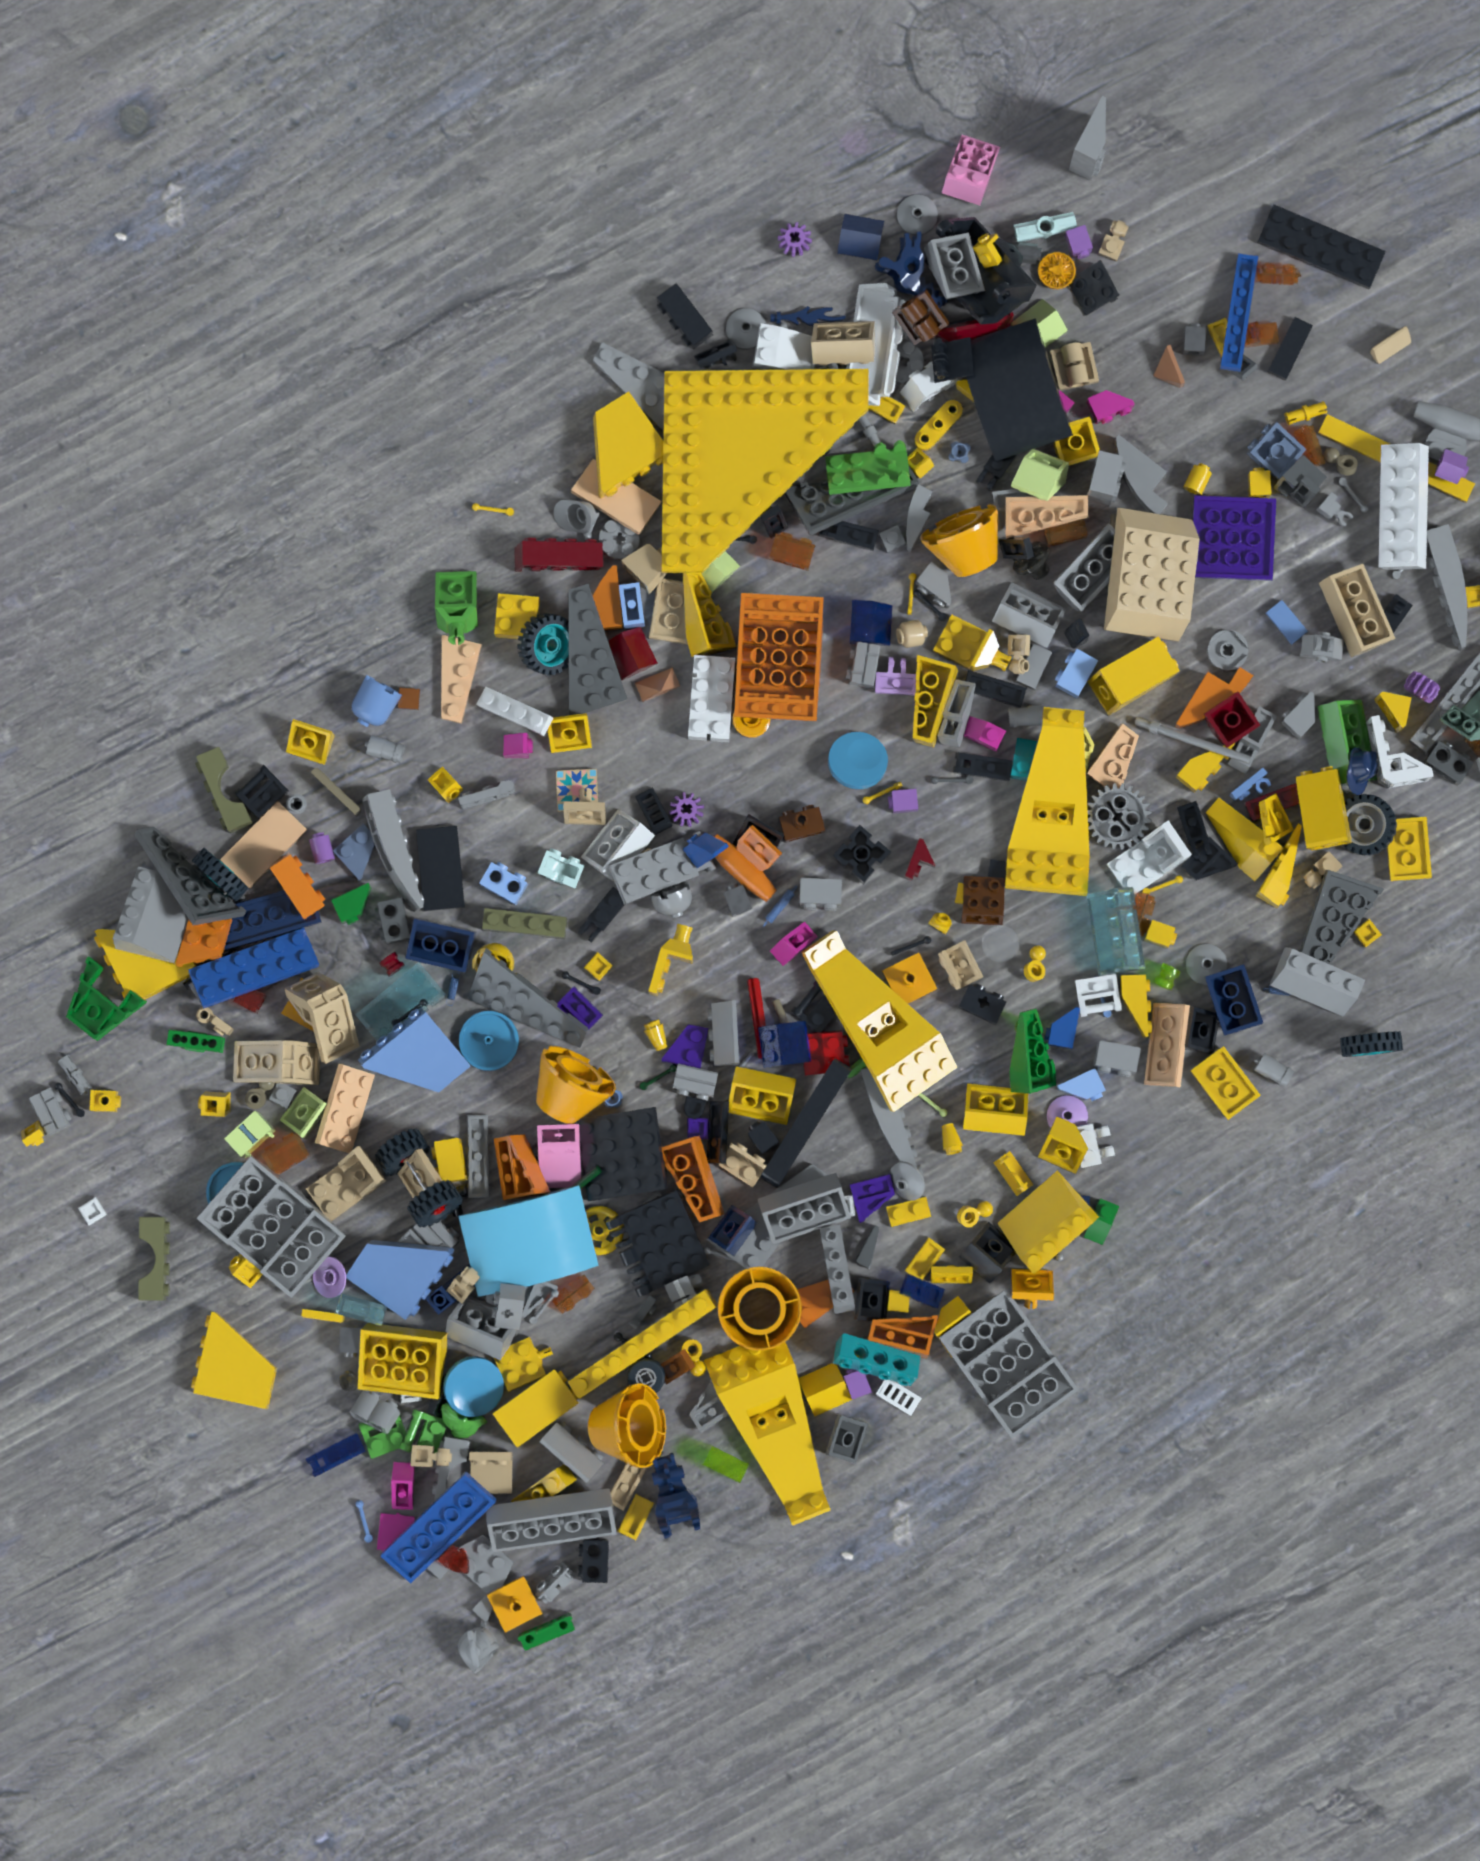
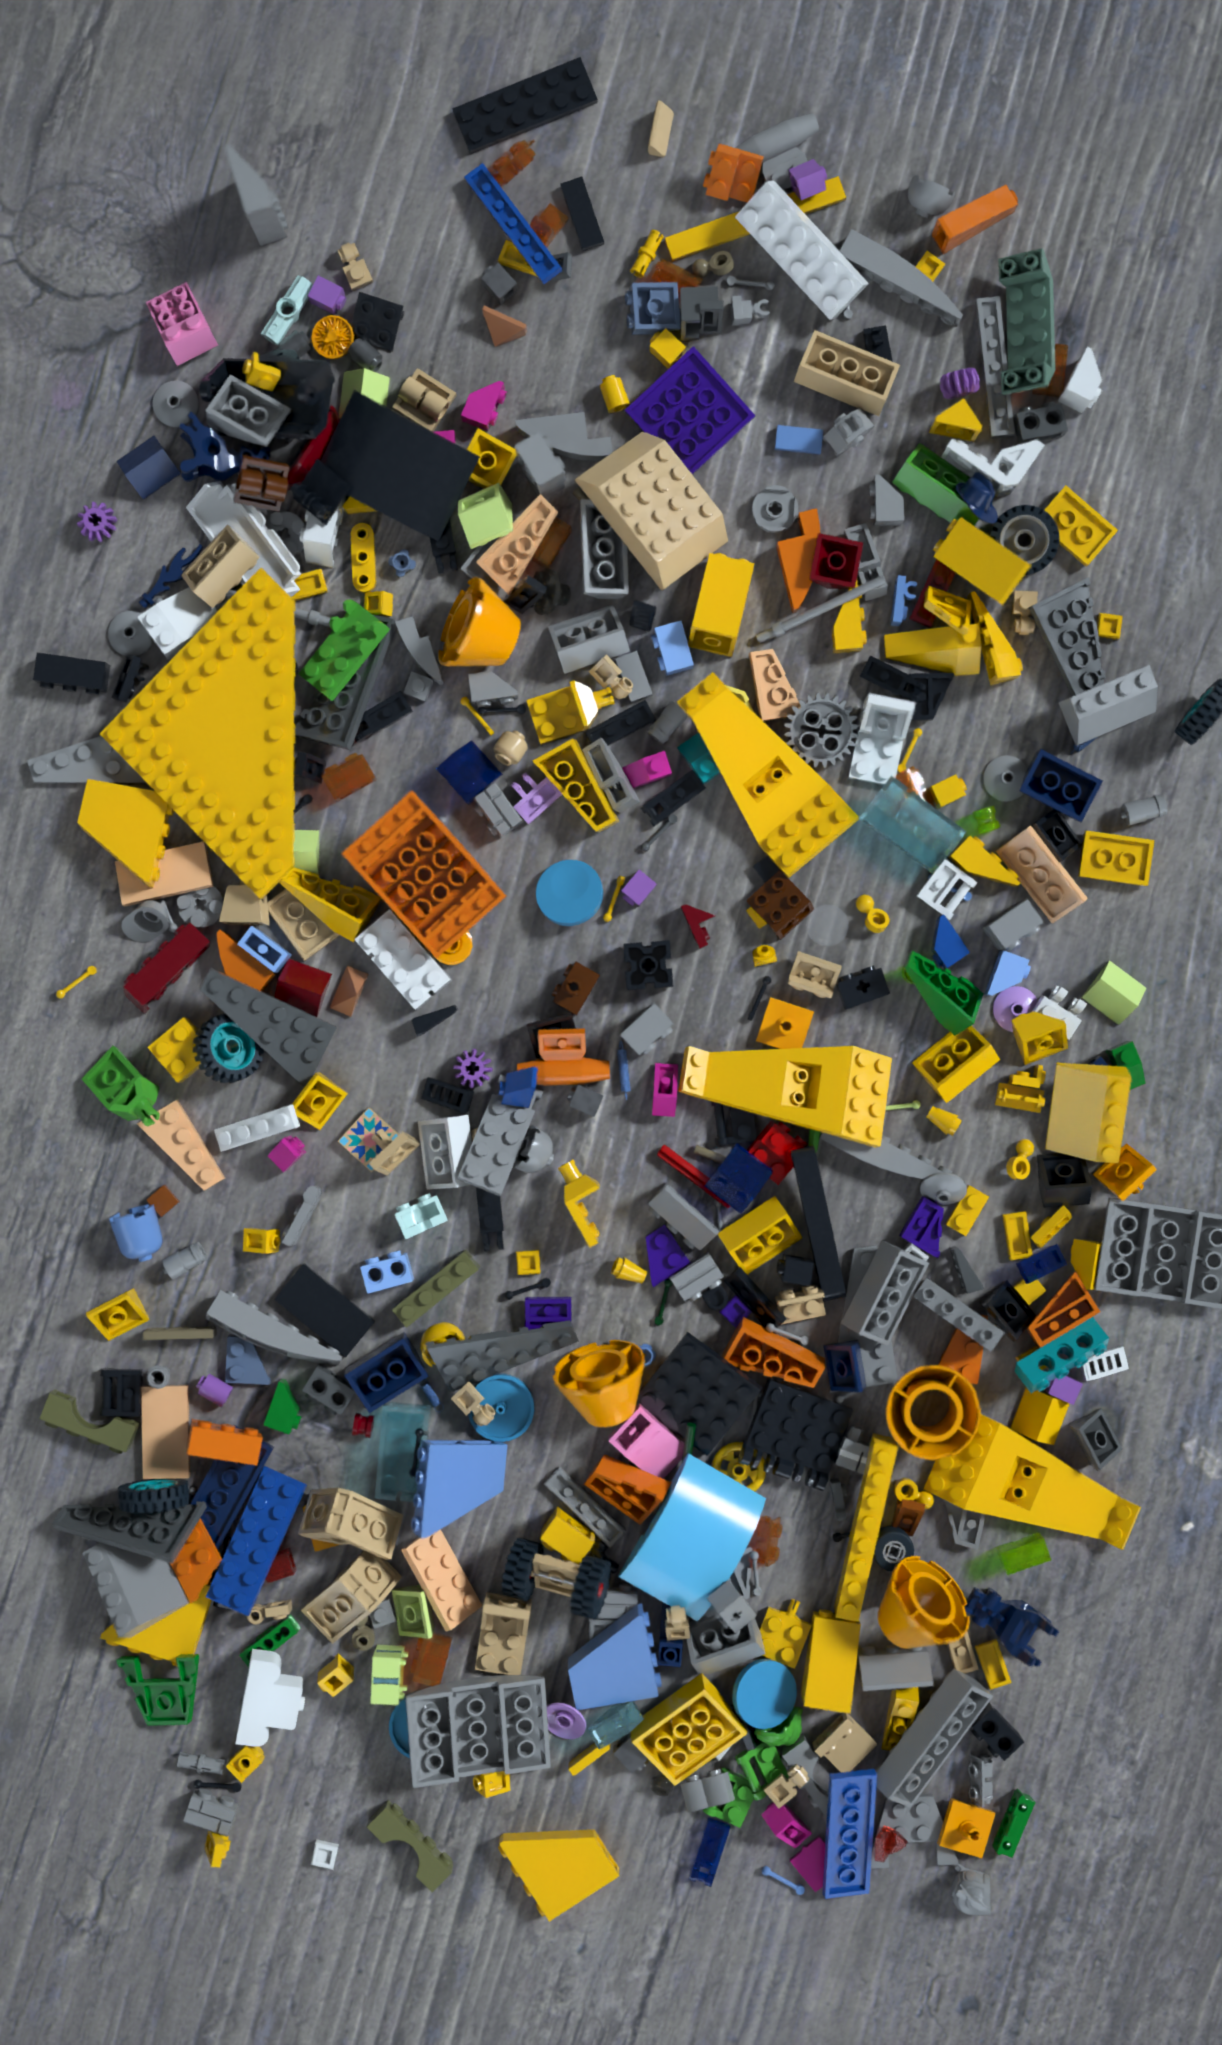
camera: 45 degrees left, 5 degrees up
(159, 1075) = (268, 1699): none -> white brick
(474, 1014) = (469, 1400): none -> tan plate
(690, 753) = (428, 1021): none -> black slope
(721, 1190) = (803, 1340): none -> light grey hinge
(1027, 1165) = (1024, 1079): none -> yellow bracket
(1065, 302) = (365, 355): none -> flat silver brick
(1139, 1167) = (1114, 993): none -> yellowish green slope
(1407, 417) = (732, 173): none -> orange plate

